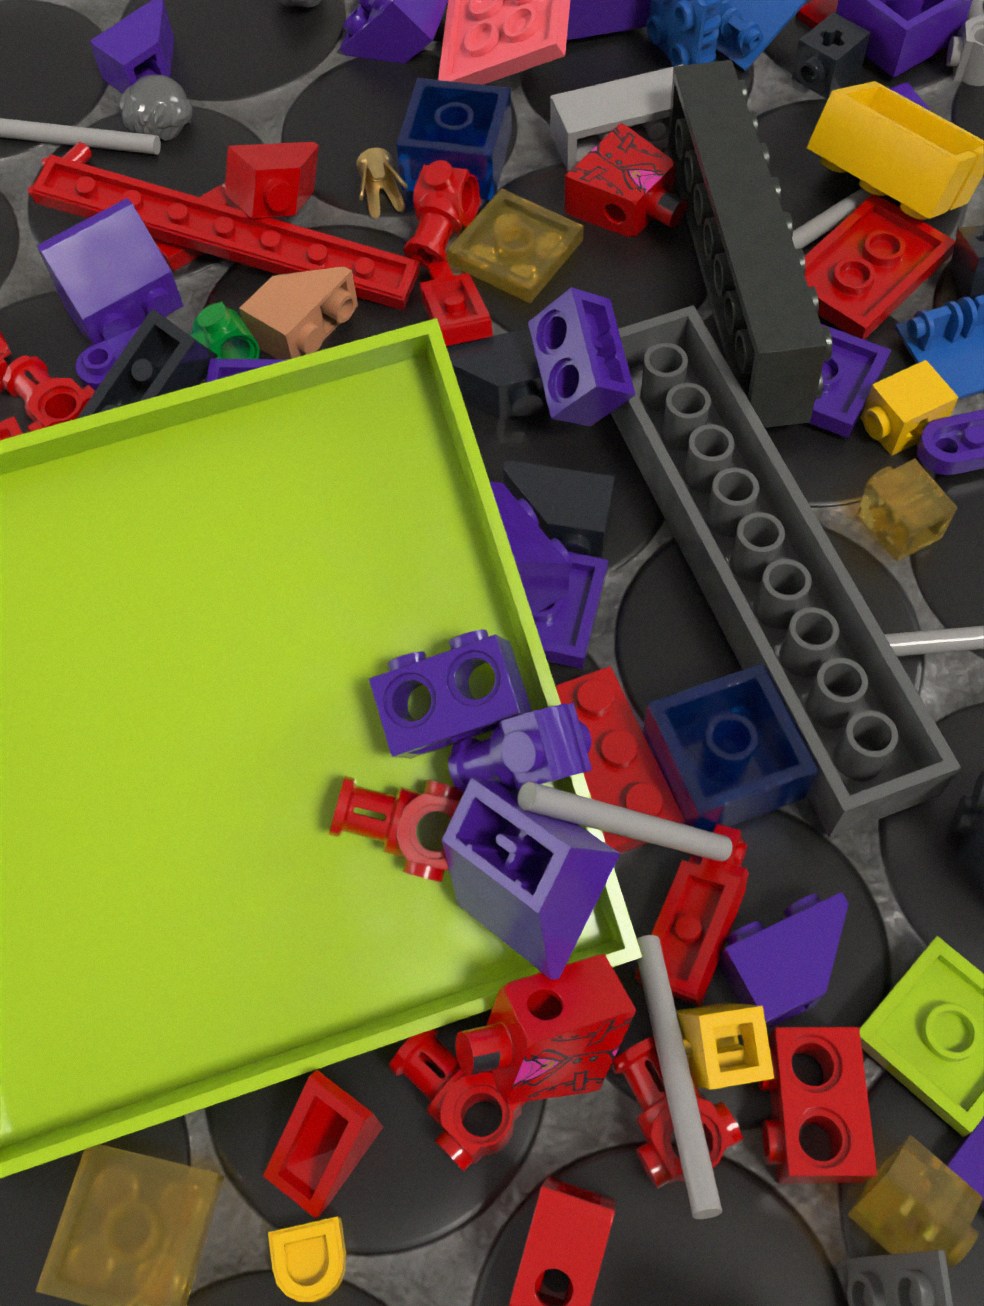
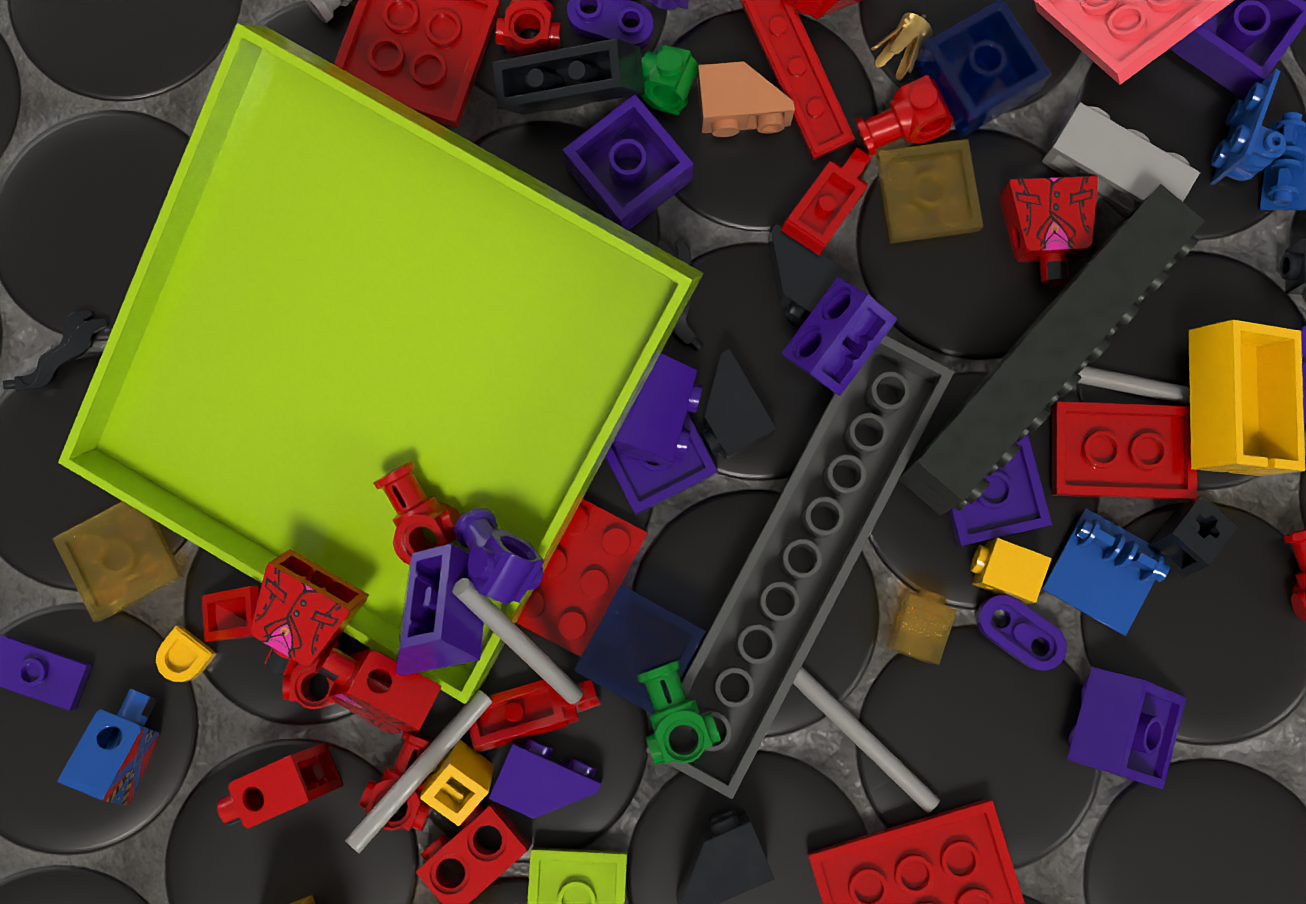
camera: 45 degrees right, 20 degrees up
(393, 1039) = (302, 611): none -> red torso
(453, 709) = (493, 494): dark purple brick -> none
(829, 741) = (675, 713): none -> green connector

